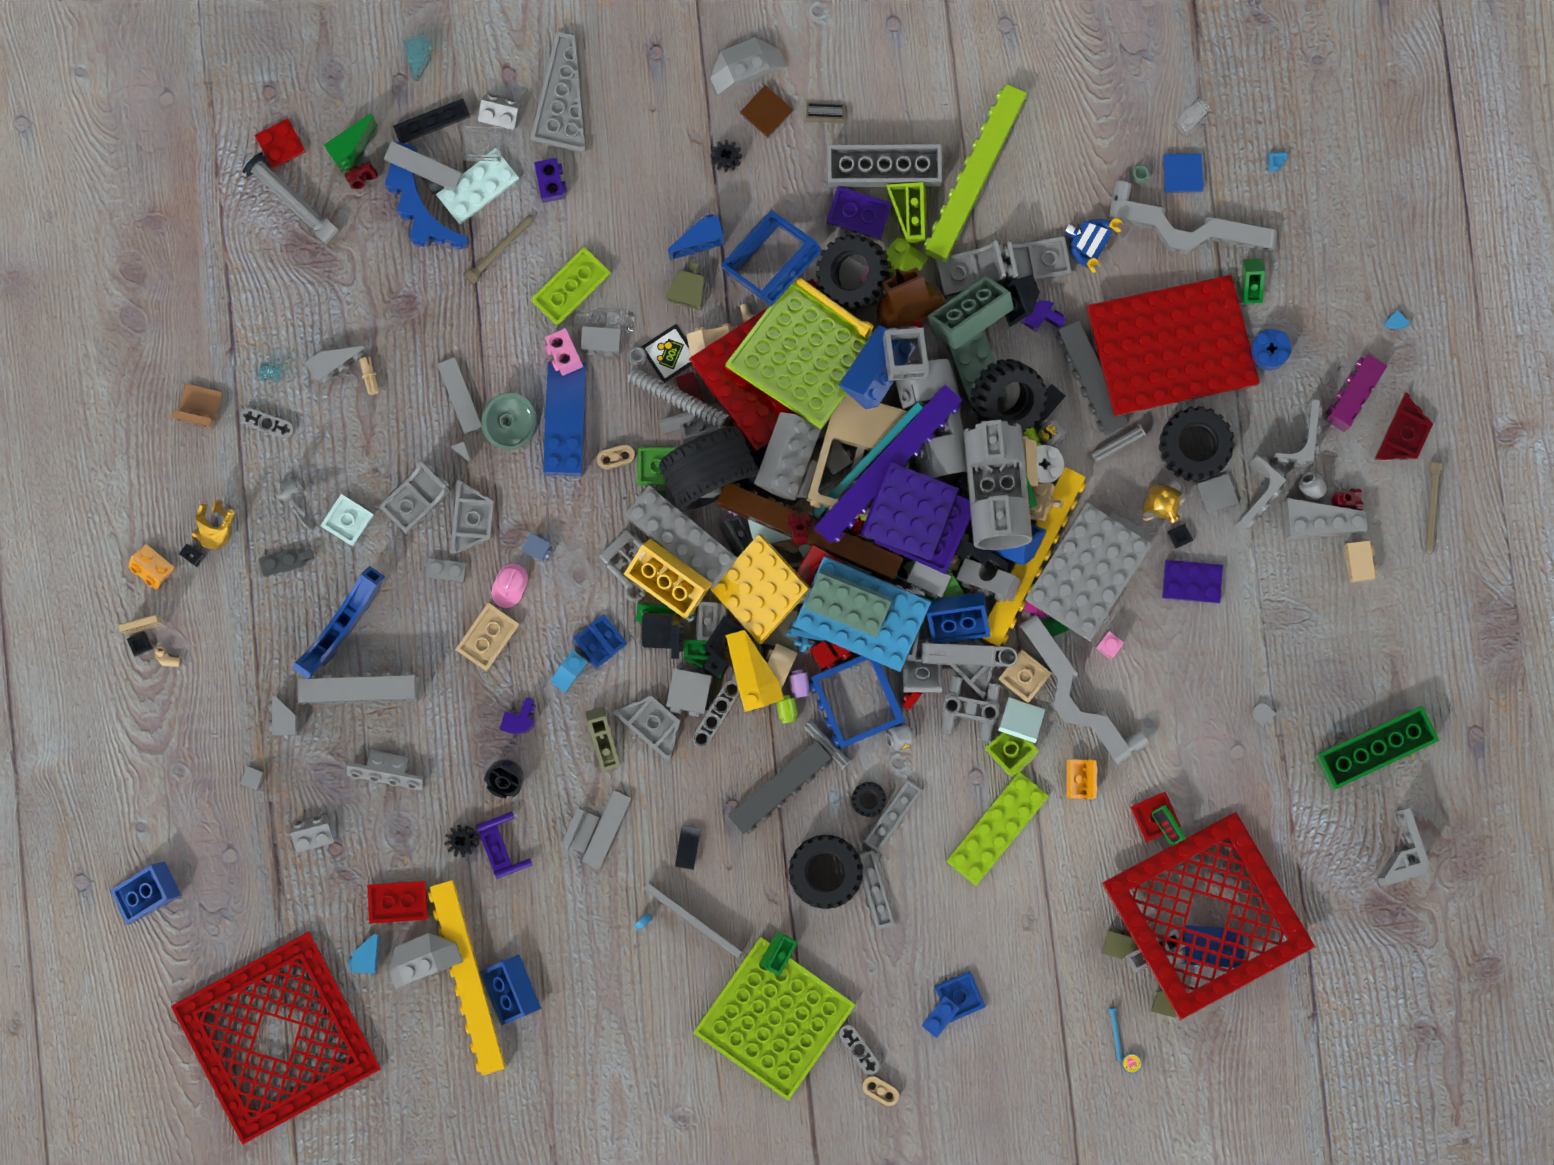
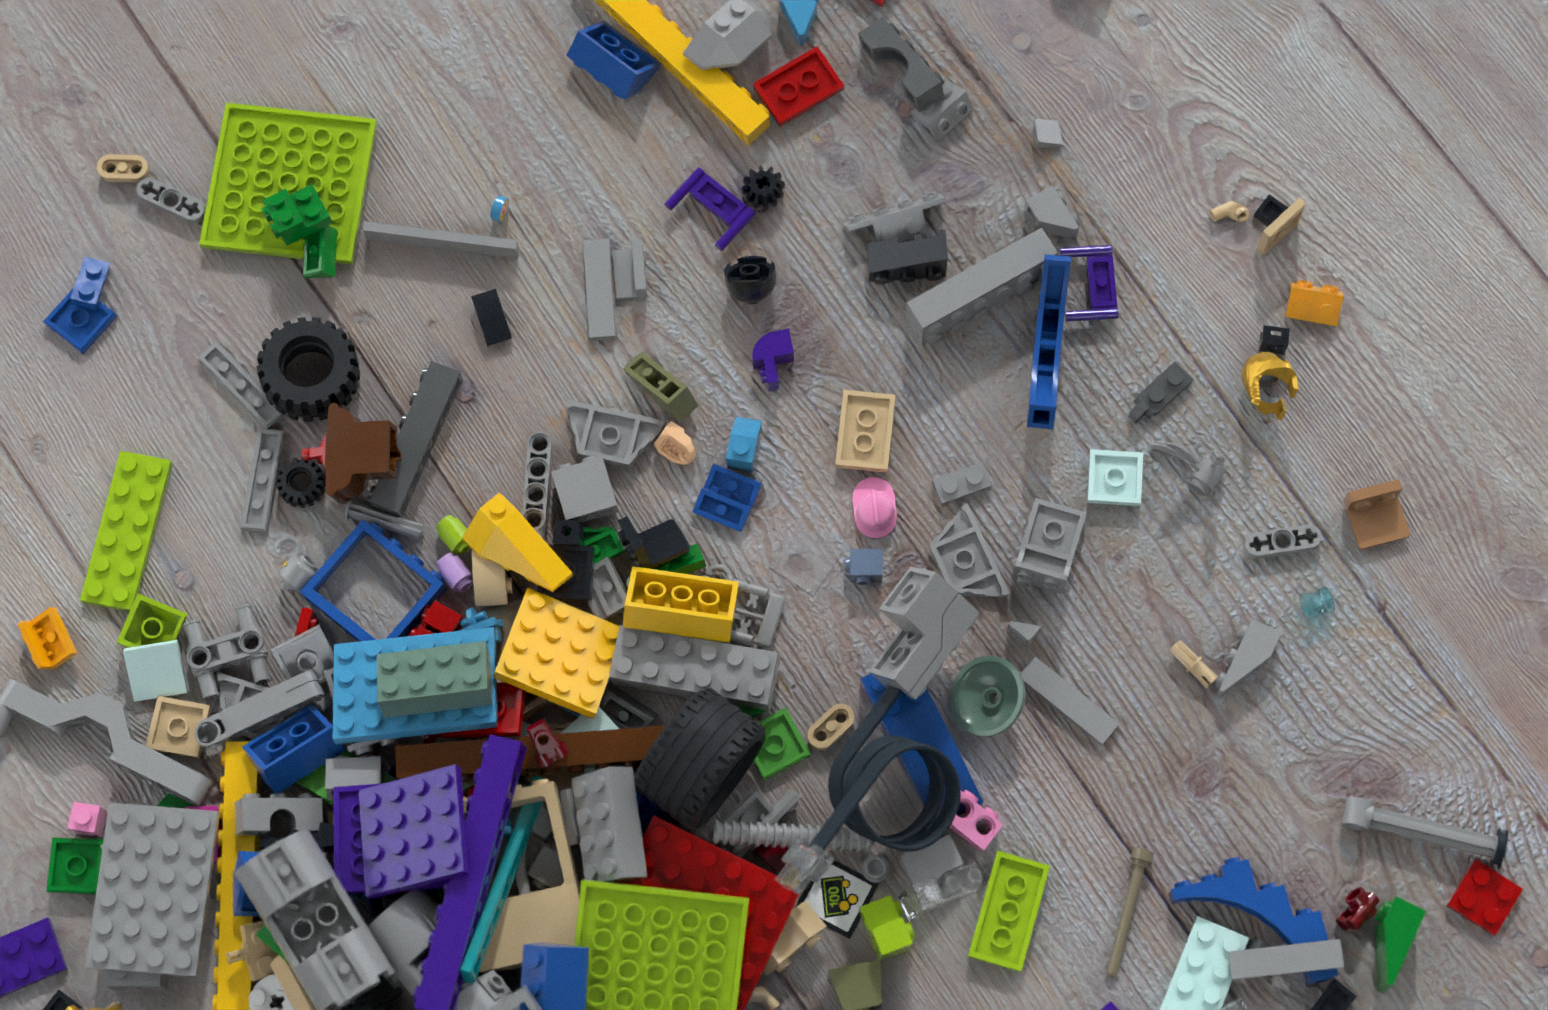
camera: 155 degrees right, 10 degrees down
(279, 655) = (1100, 283): none -> dark purple plate
(324, 900) = (884, 44): none -> dark grey arch
(395, 736) = (908, 260): none -> black wedge
(546, 458) = (930, 624): none -> piece
(614, 693) = (675, 445): none -> light nougat rock
(651, 308) = (886, 928): none -> lime brick
(780, 986) = (295, 214): none -> green plate
(824, 791) = (355, 453): none -> reddish brown piece
(1129, 620) = (74, 866): none -> green plate

